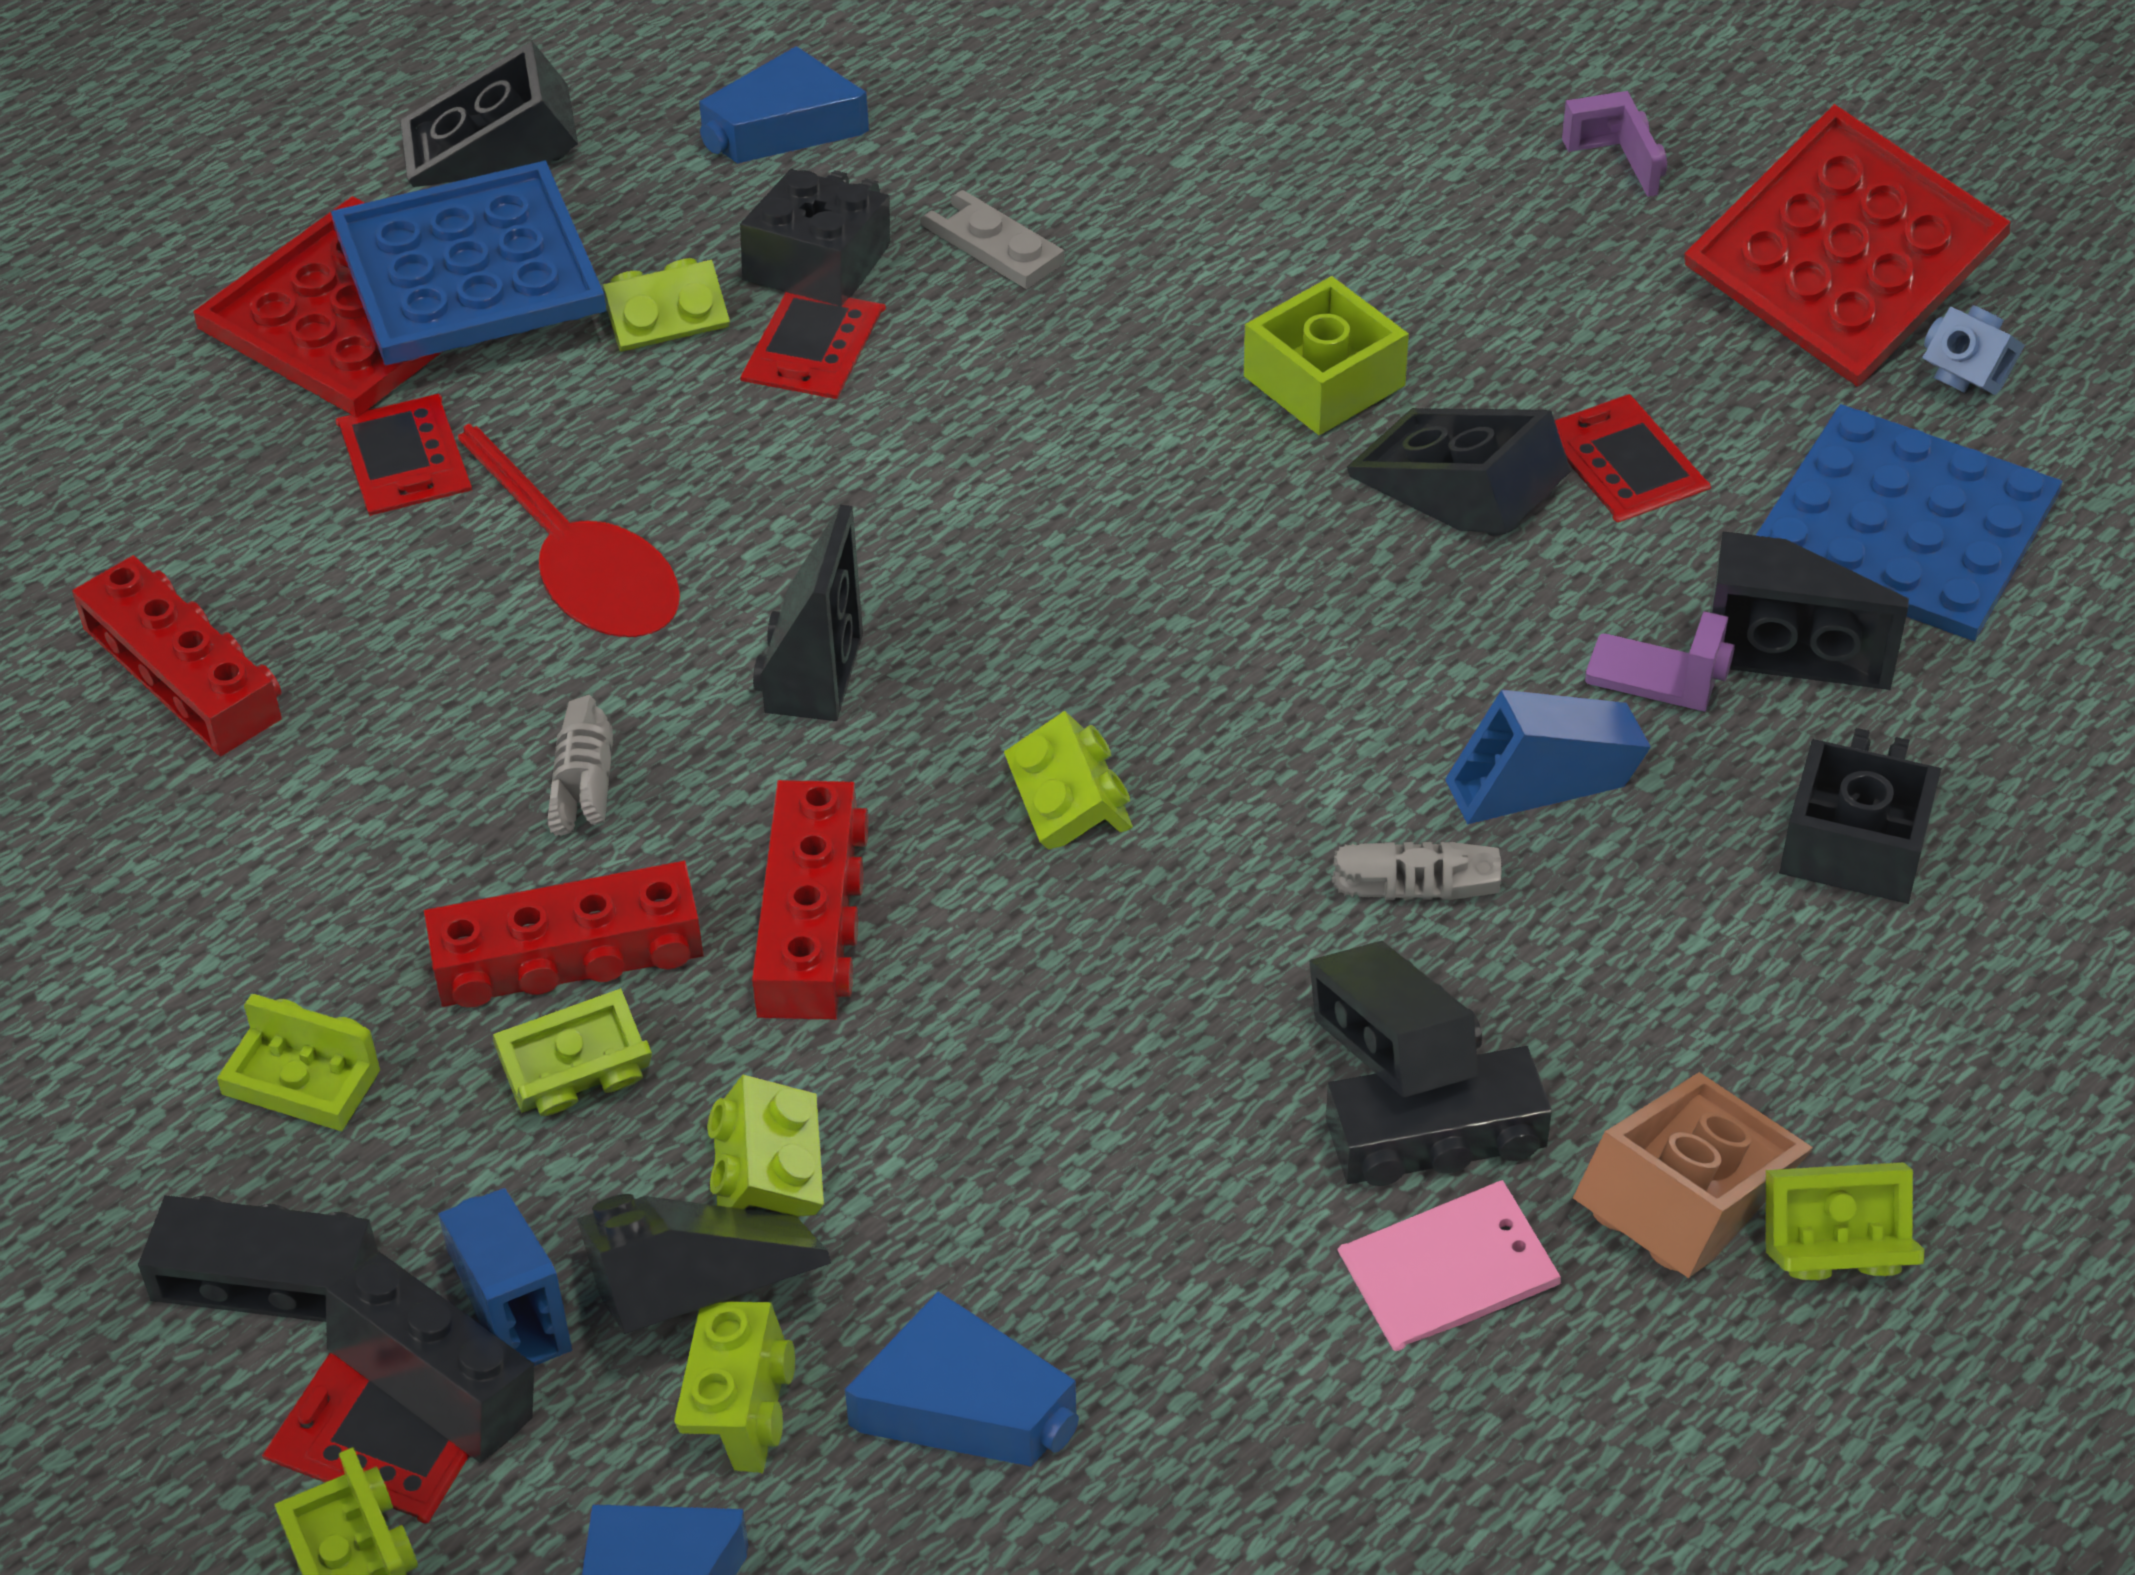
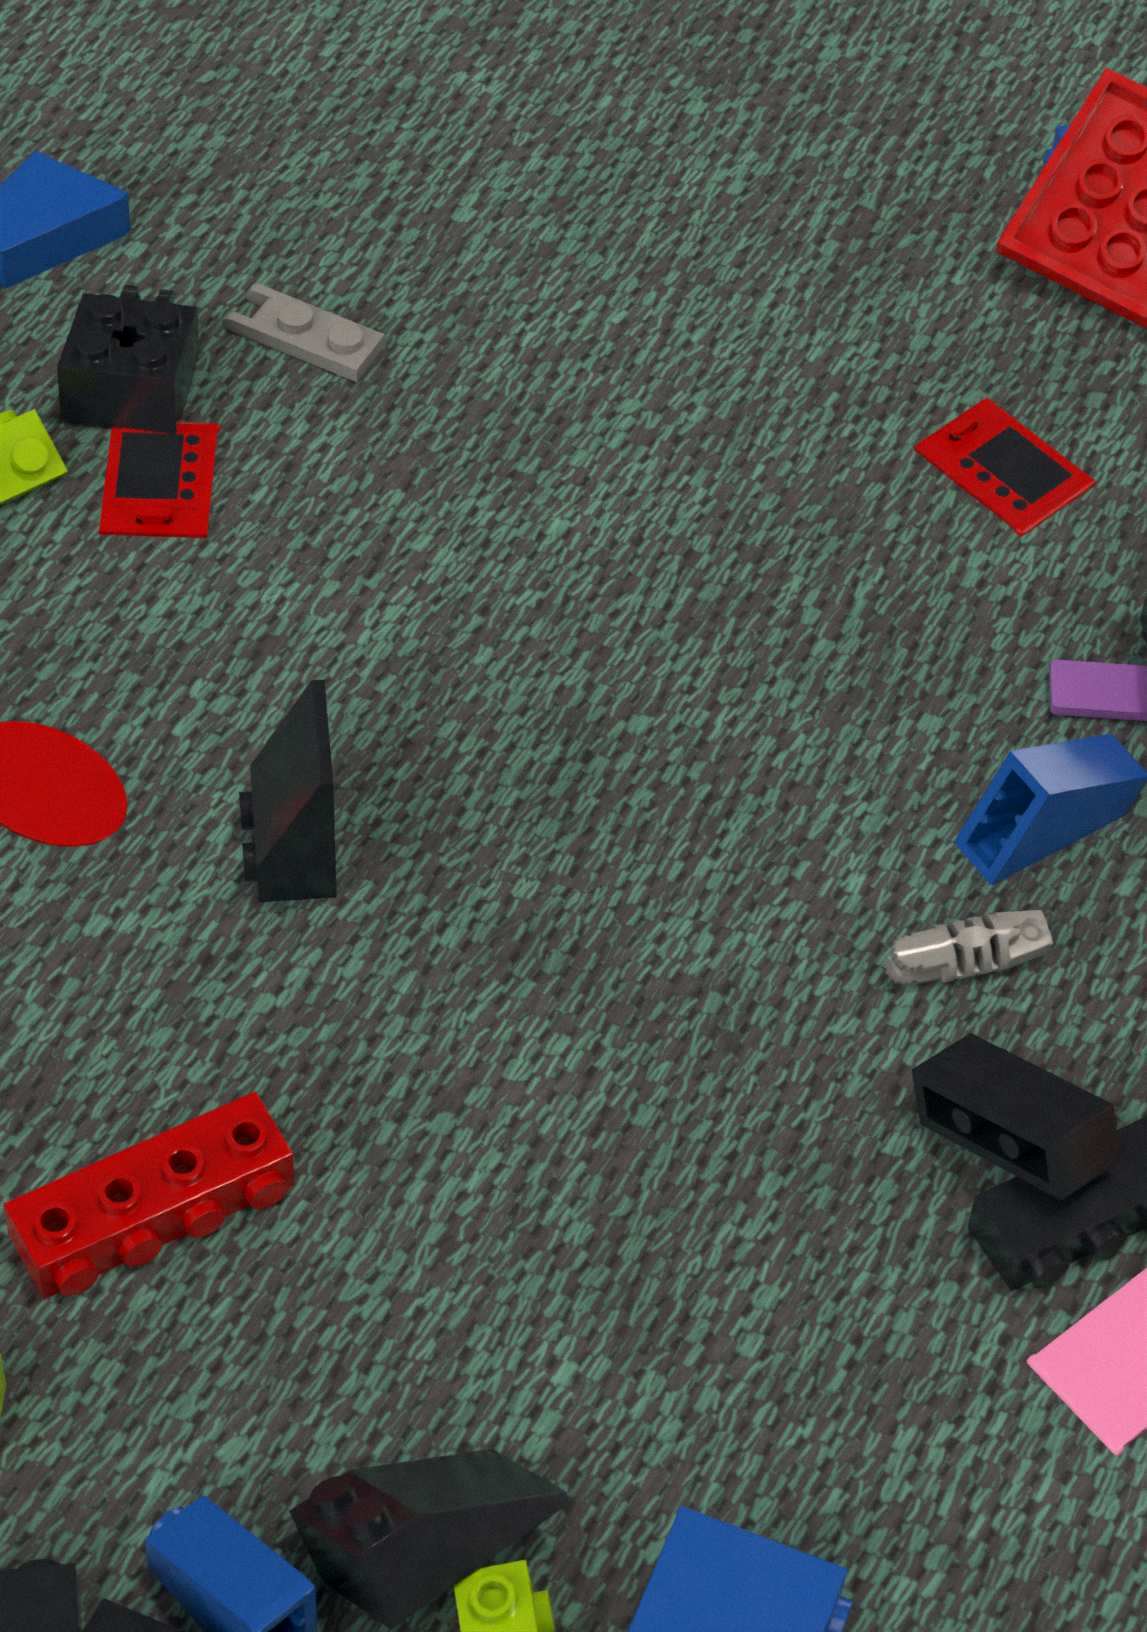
camera: 20 degrees left, 5 degrees up
(572, 1052) = (206, 1324): lime bracket -> none
(580, 766) = (97, 1002): light grey hinge -> none
(767, 1148) = (440, 1386): lime bracket -> none
(806, 900) = (387, 1104): red brick -> none
(1067, 781) = (594, 920): lime bracket -> none
(1325, 355) = (692, 409): lime brick -> none
(1467, 465) = (863, 503): black slope -> none
(1612, 121) = (879, 106): medium lavender bracket -> none

